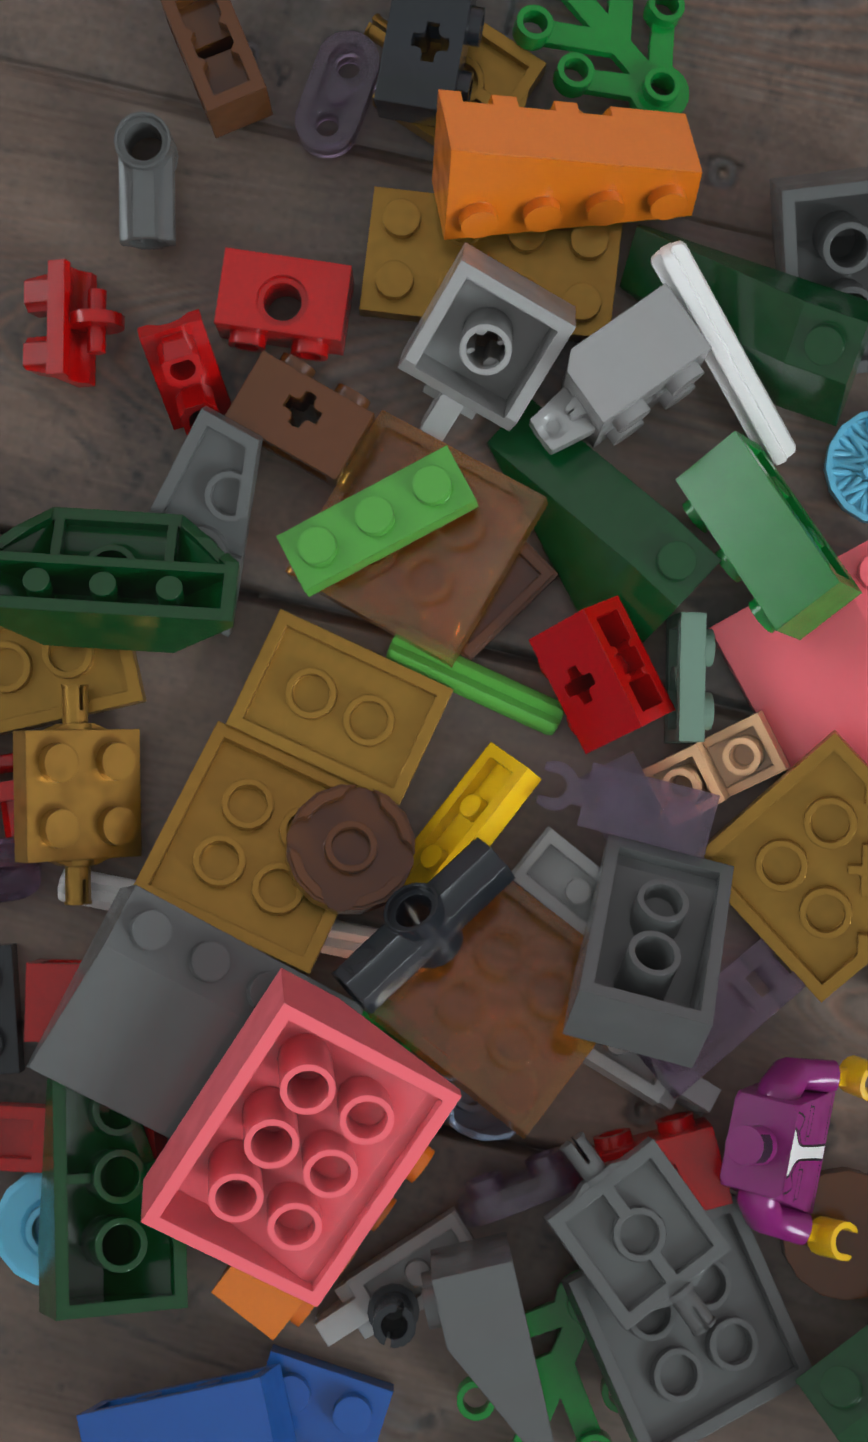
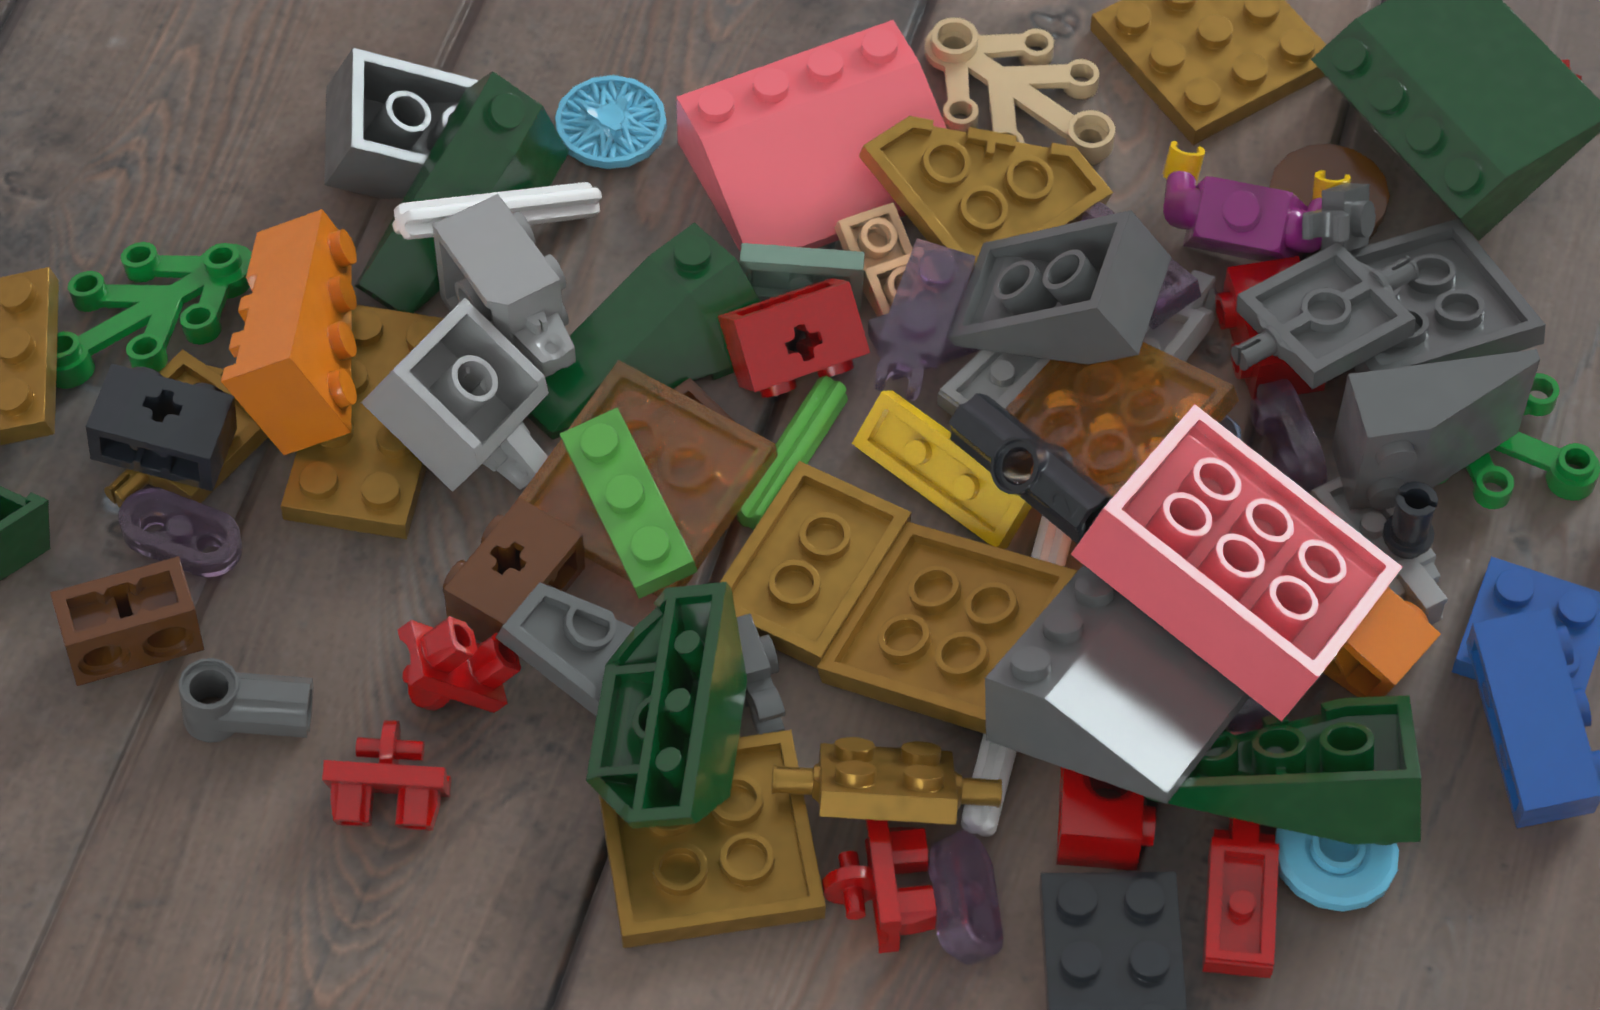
camera: 90 degrees left, 30 degrees down
(219, 658) = (760, 662): none -> dark grey plate
(256, 279) = (387, 553): red brick -> none
(349, 849) = (954, 543): reddish brown tile -> none
(765, 538) = (674, 188): green brick -> none
(781, 1255) = (1344, 217): none -> dark grey plate

